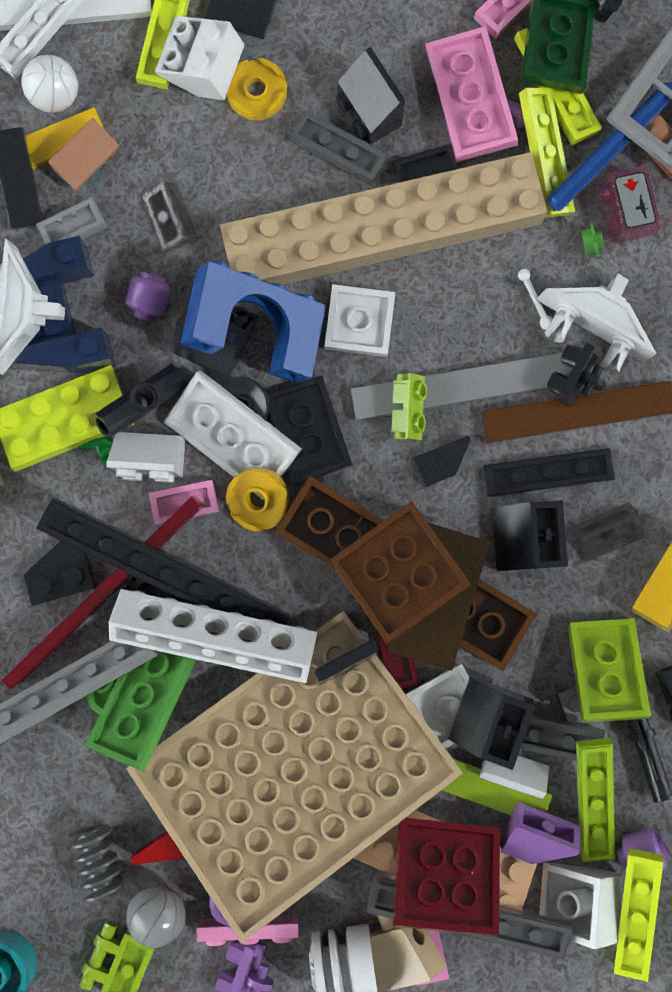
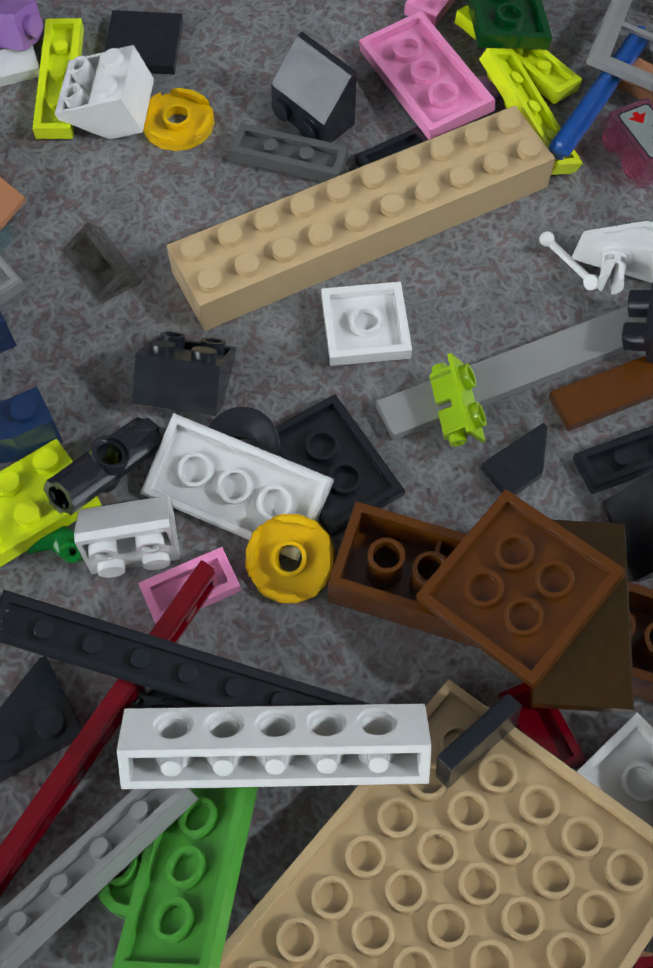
camera: 15 degrees left, 20 degrees down
(148, 296) = (90, 347): medium lavender head -> none
(294, 317) = (283, 329): arch -> none
(592, 240) = (614, 185): bright green plate -> none

